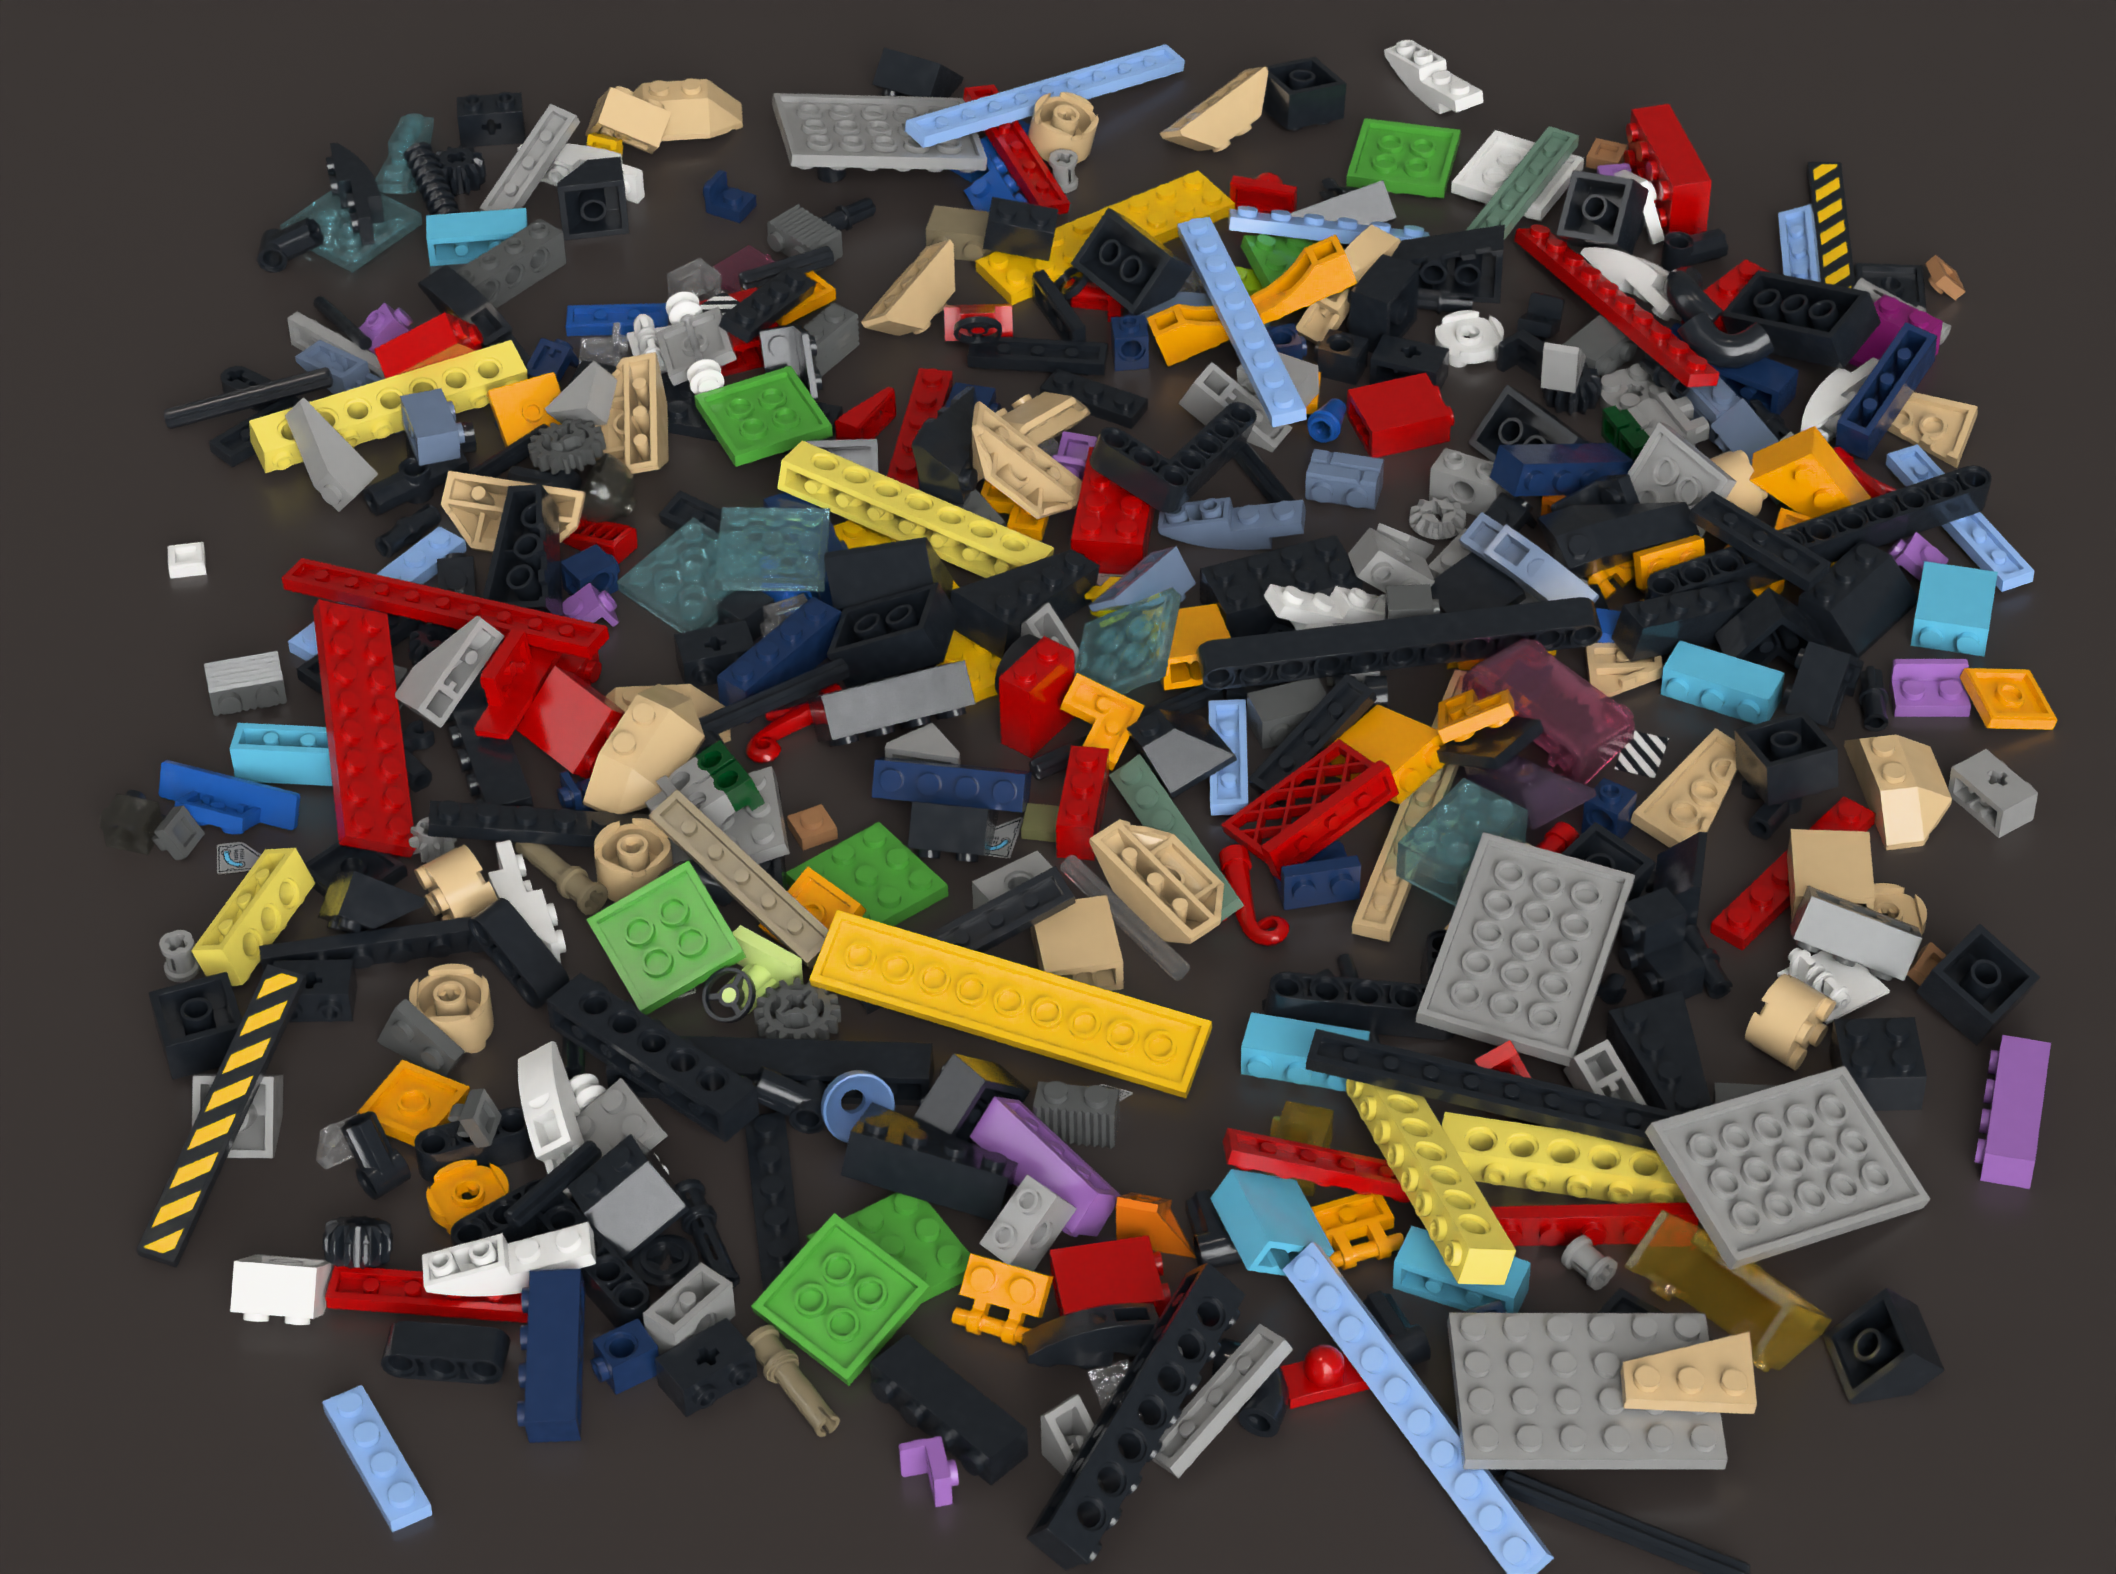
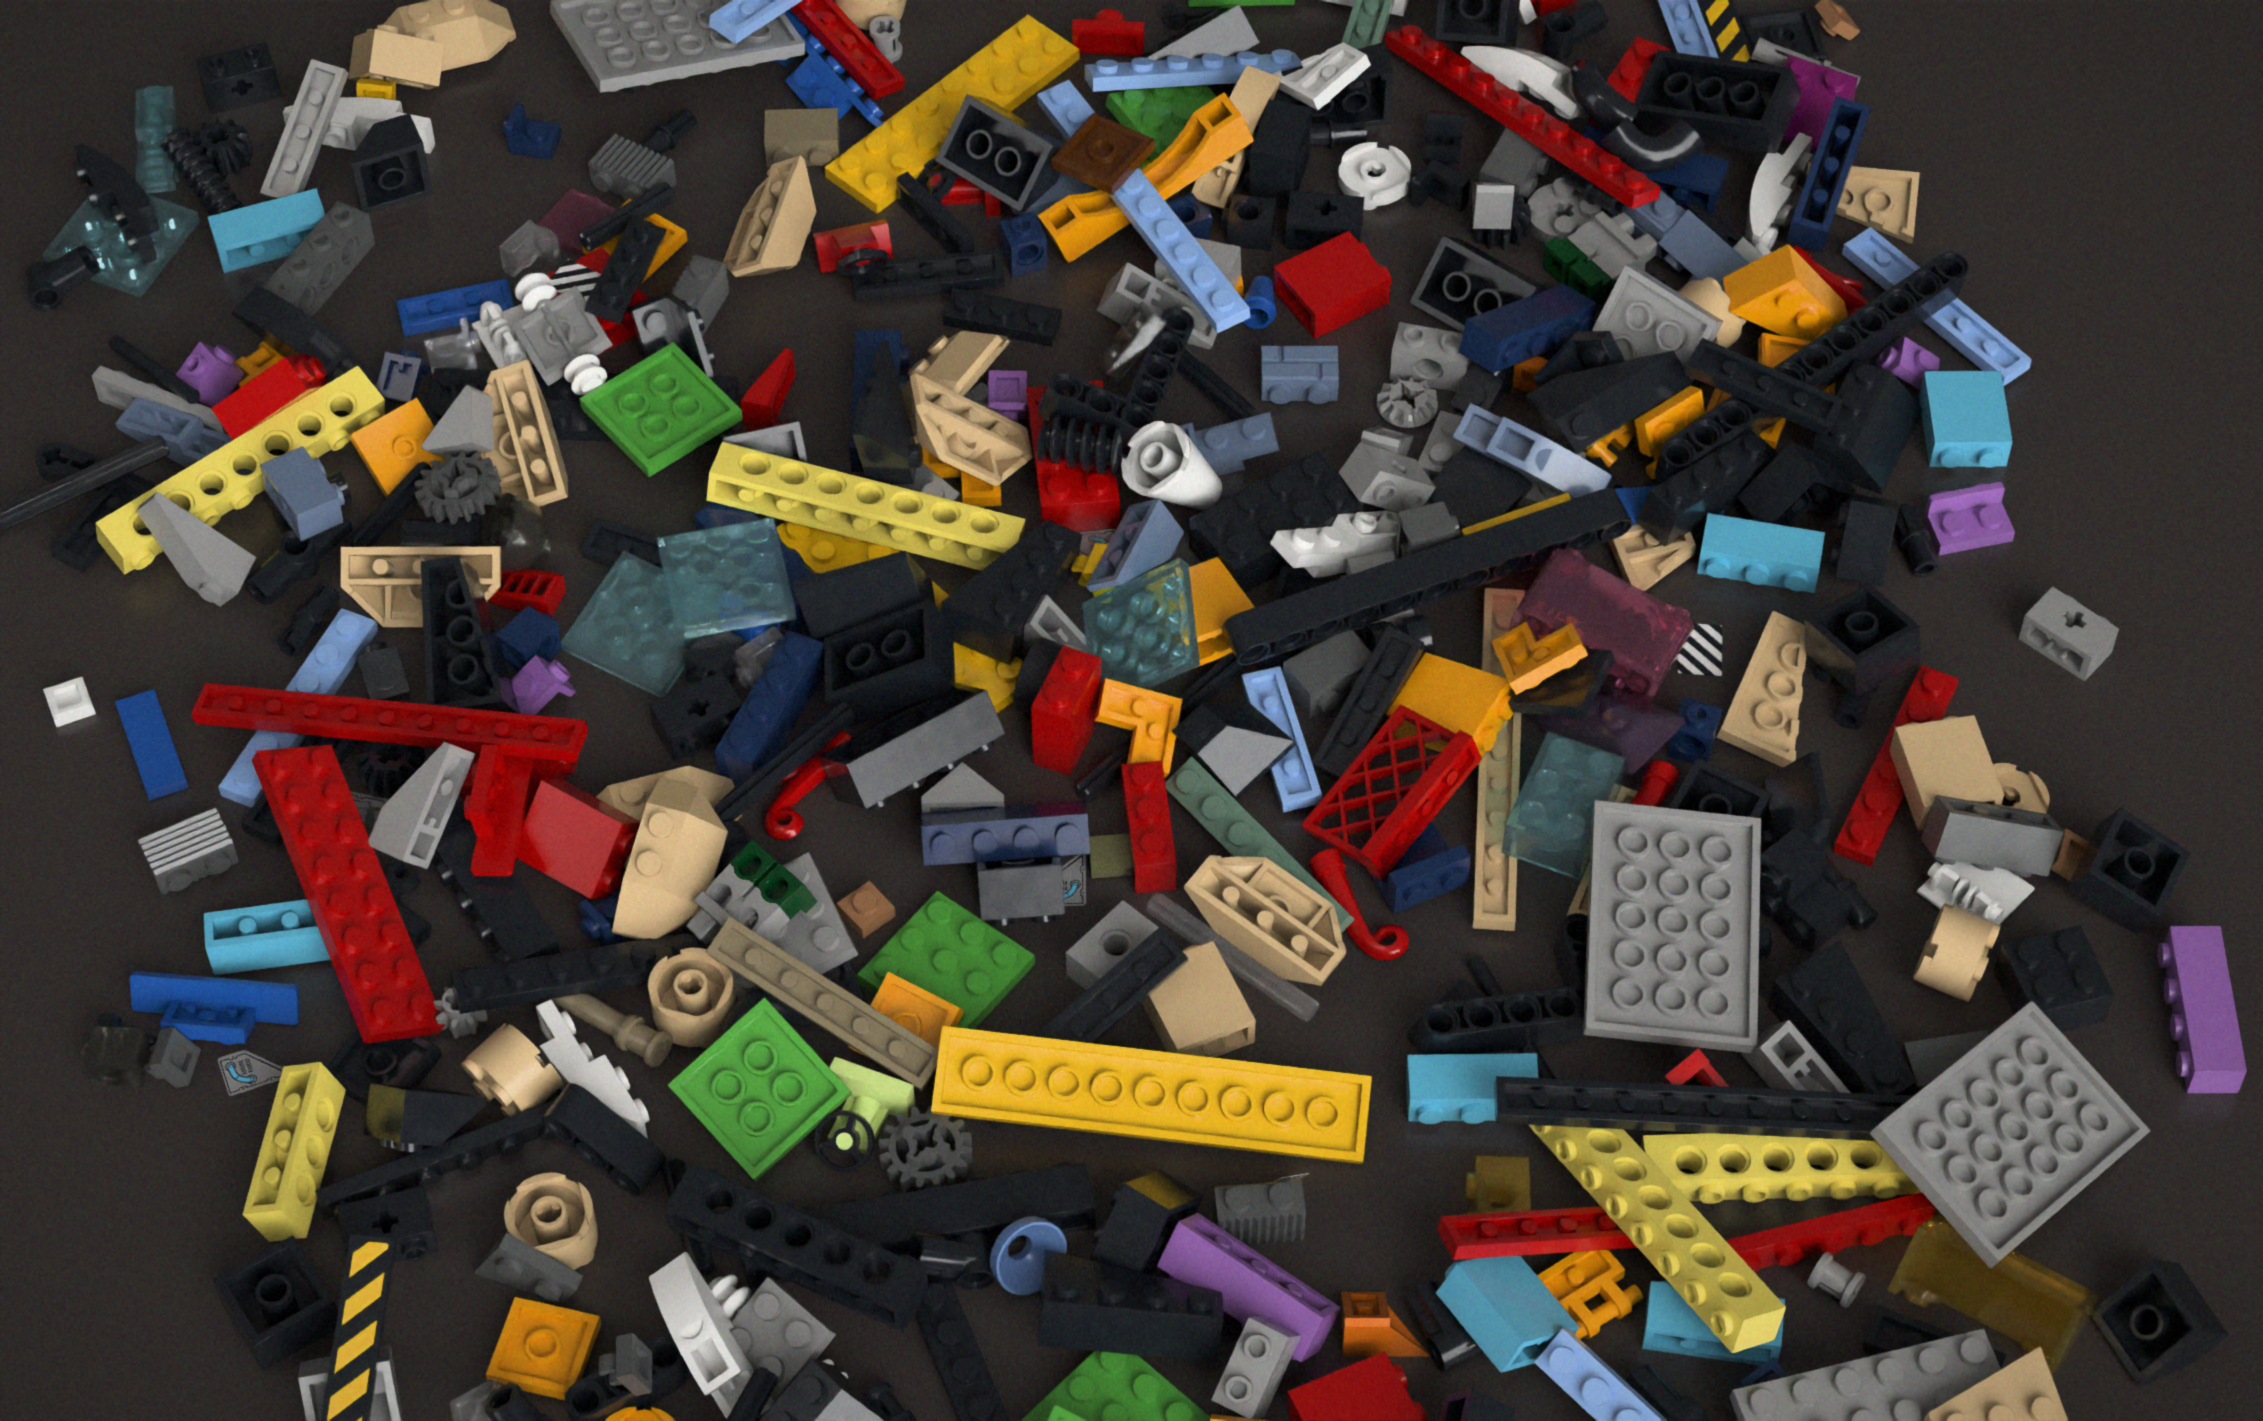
camera: 15 degrees left, 10 degrees up
(173, 949) = (218, 1213): light grey bush -> none
(244, 602) = (151, 744): none -> blue tile
(927, 397) = (828, 391): red plate -> none
(1020, 228) = (869, 124): black slope -> none
(1116, 492) = (1080, 446): none -> black piece
(1194, 524) = (1170, 467): none -> white cone
(1203, 414) = (1138, 330): none -> clear smoke plate
(1216, 272) = (1103, 153): none -> reddish brown tile
(1440, 243) = (1324, 75): none -> white wing
(1900, 787) = (1972, 642): tan wedge -> none
(2008, 698) = (2049, 516): light orange plate -> none

